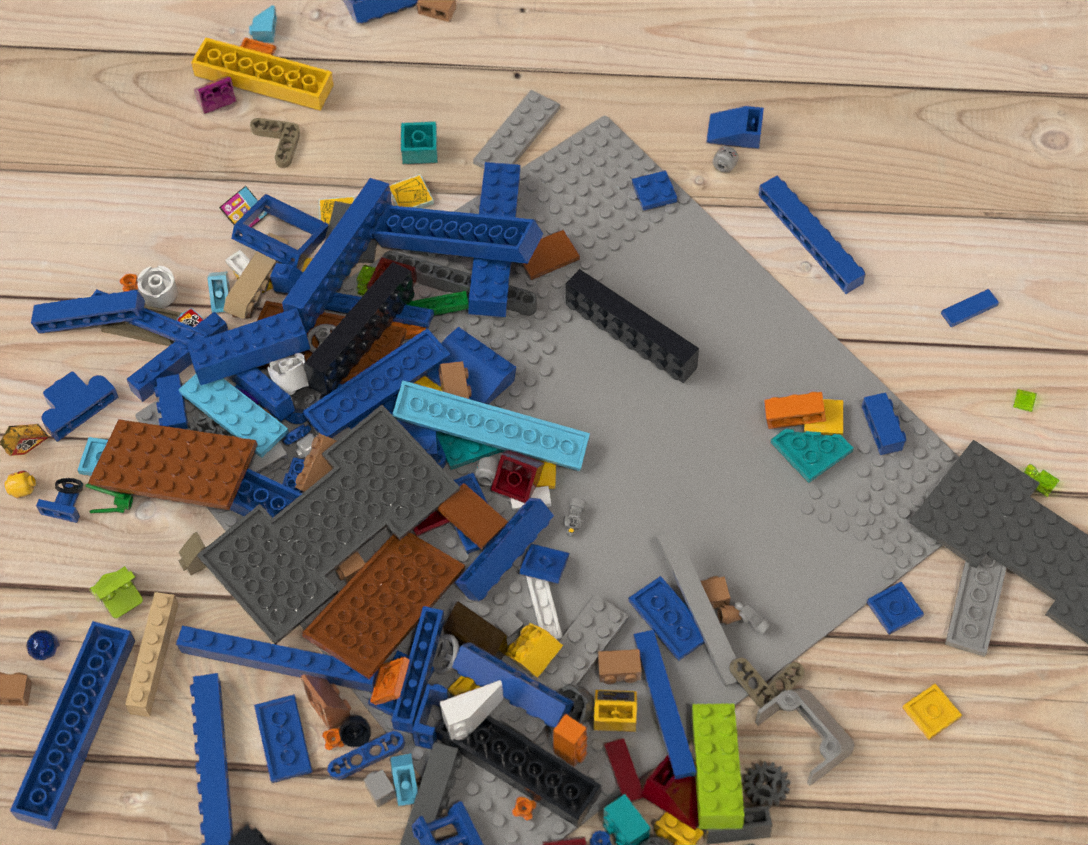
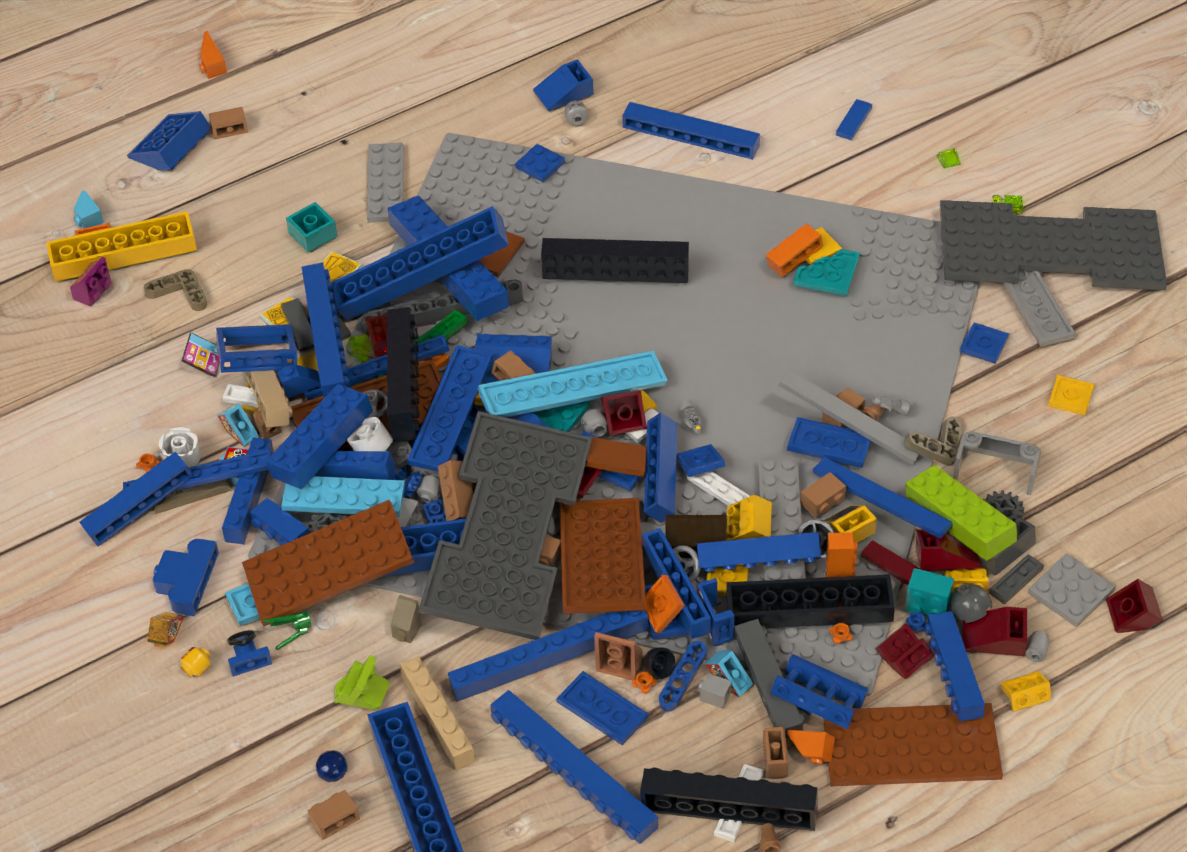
camera: 35 degrees left, 10 degrees down
(468, 710) = (745, 581): white slope -> none
(883, 423) = (865, 225): blue brick -> none

